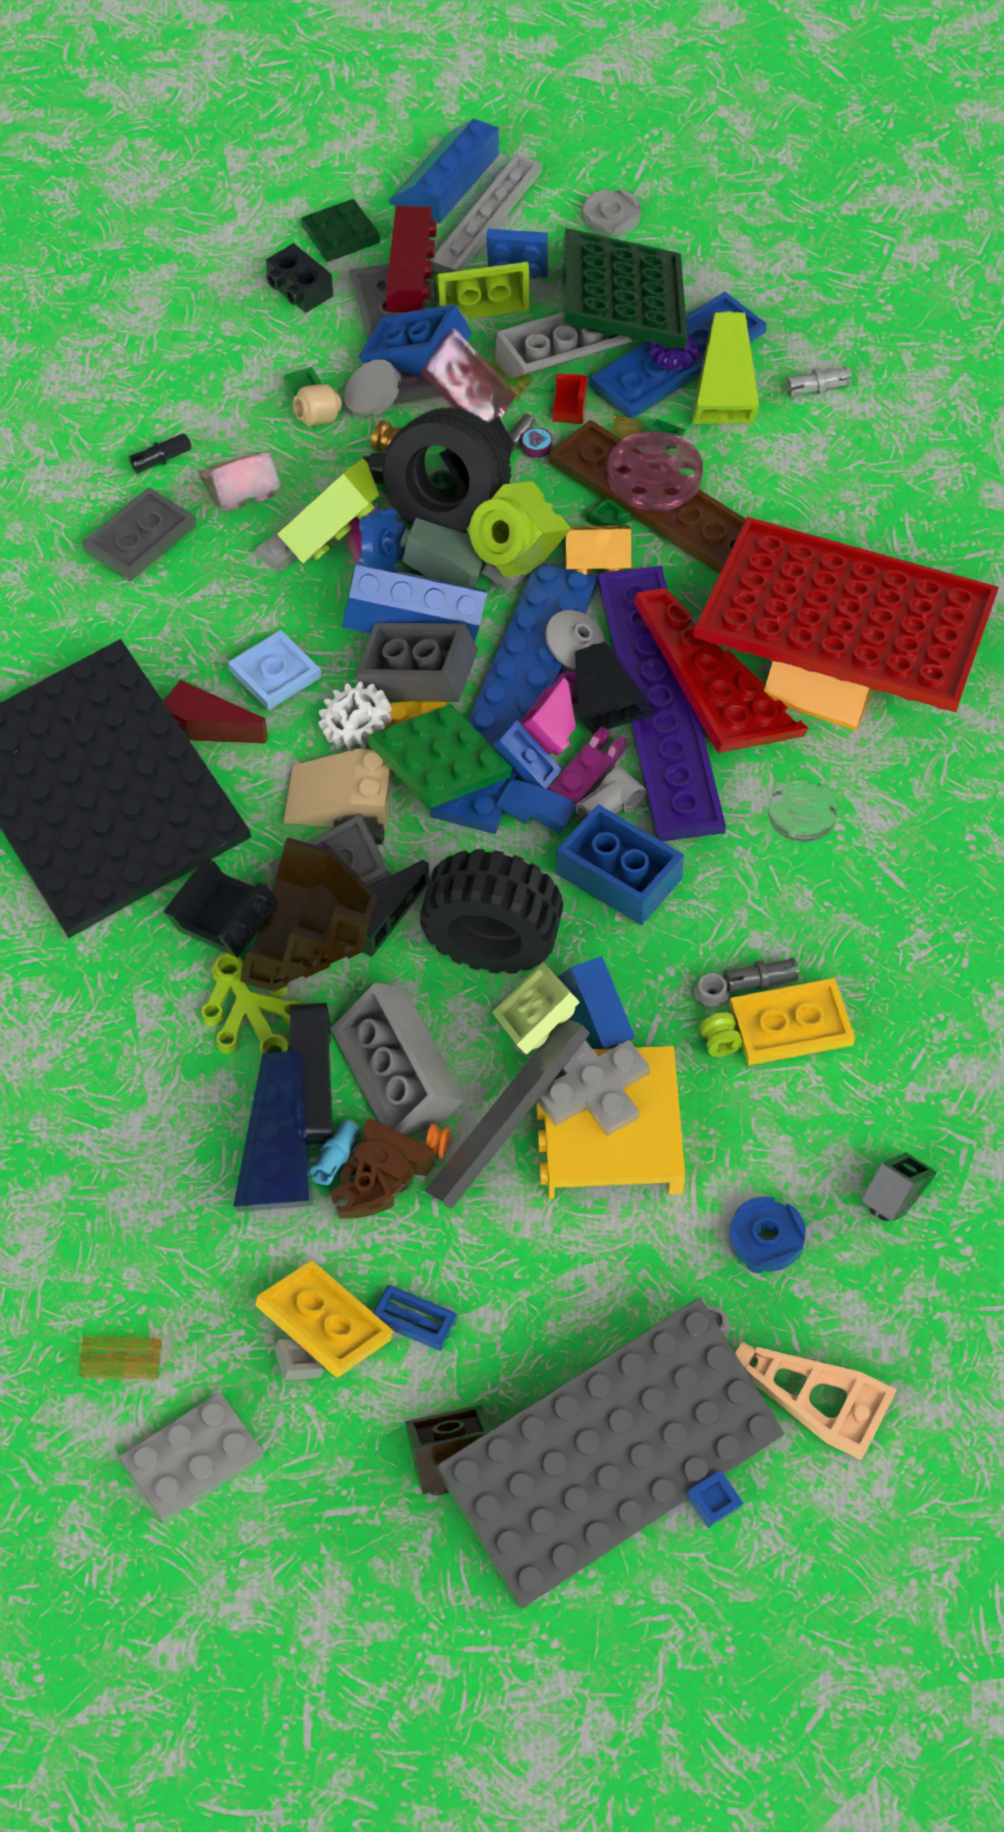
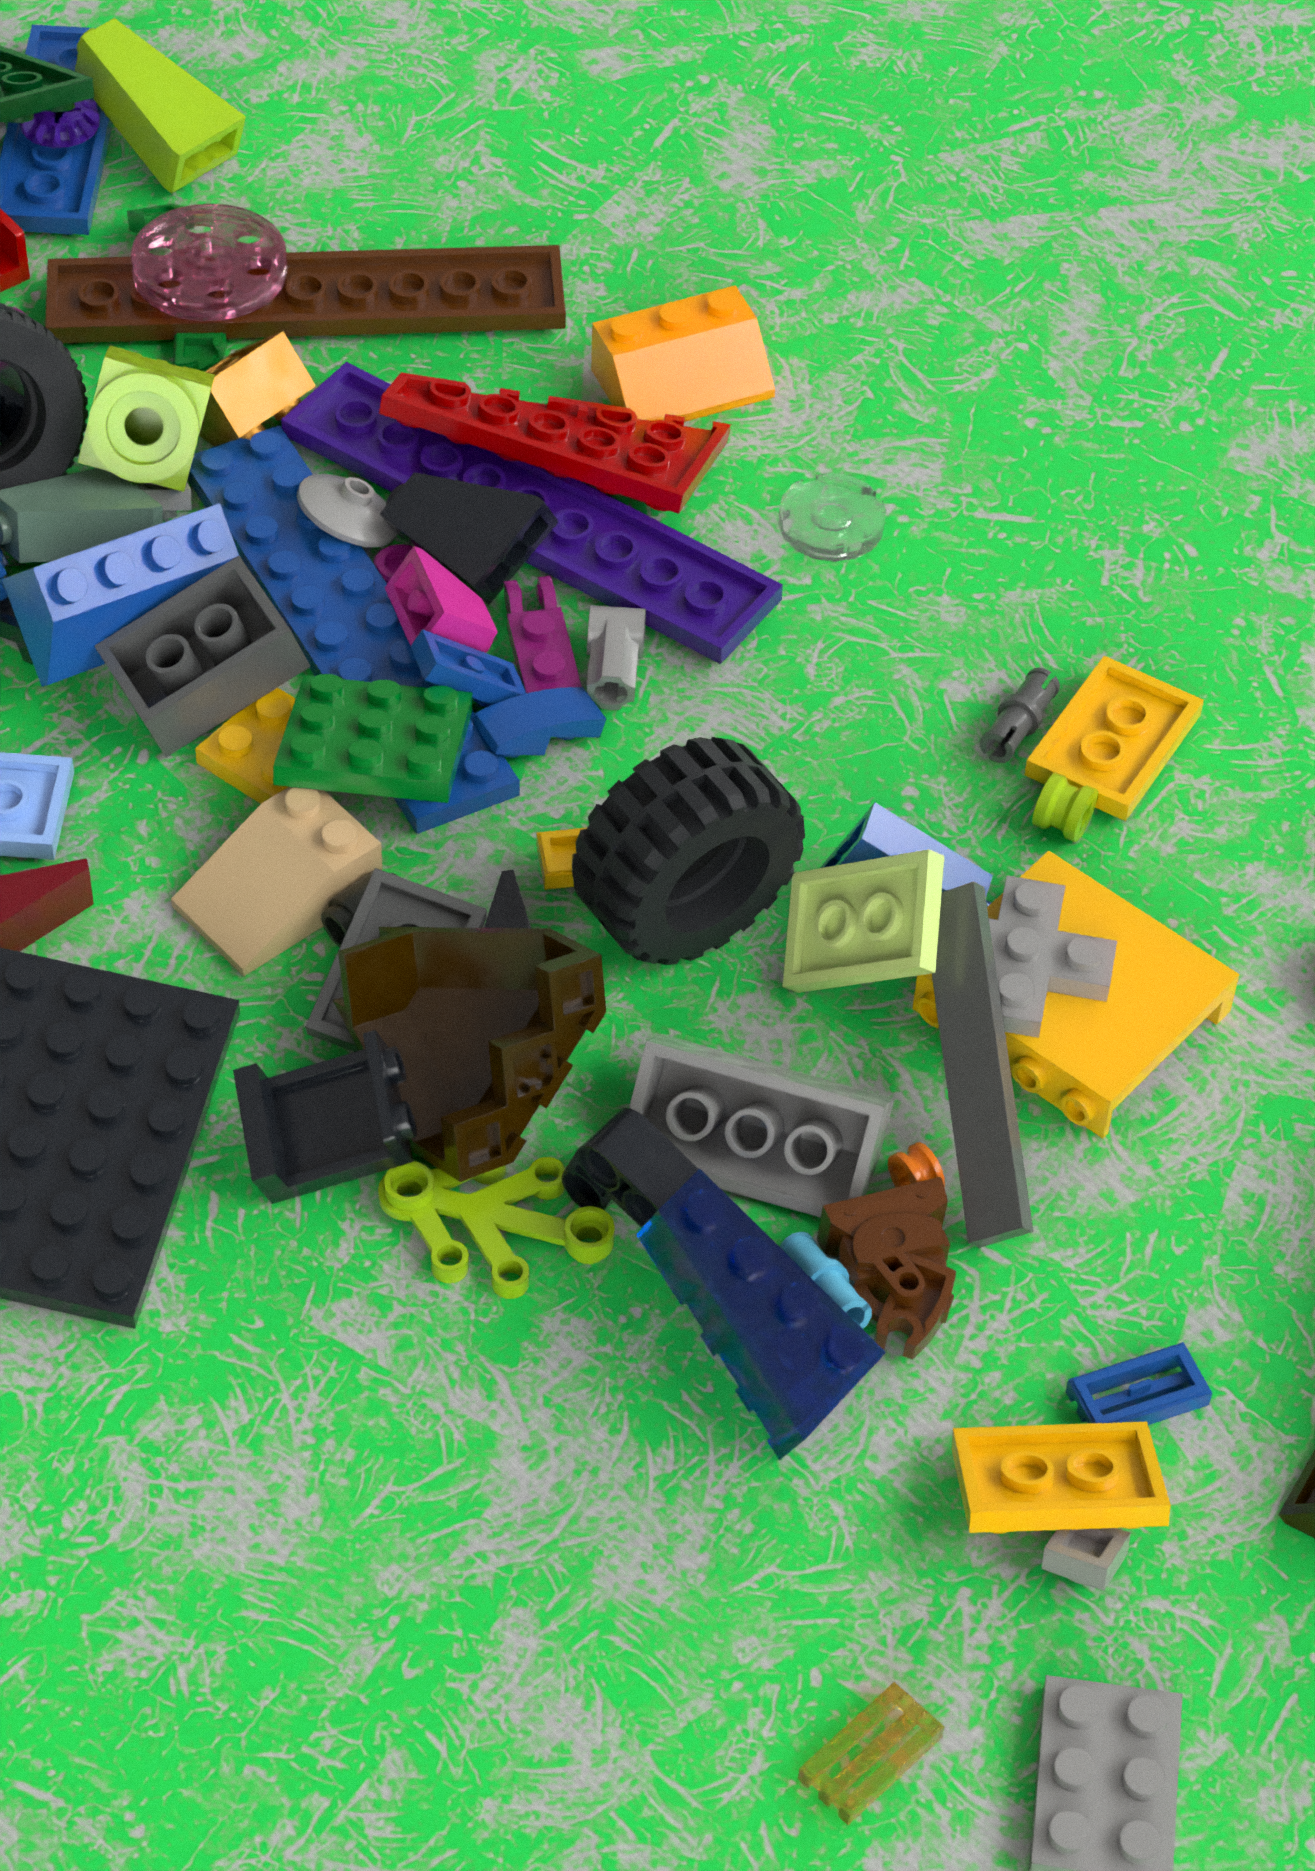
camera: 50 degrees left, 5 degrees down
(354, 715) = (172, 799): white gear -> none
(619, 864) = (737, 692): blue brick -> none
(625, 426) = (97, 243): clear yellow tile -> none
(714, 983) = (989, 771): light grey plate -> none
(818, 381) = (263, 59): light grey pin -> none
(848, 613) = (646, 262): red plate -> none

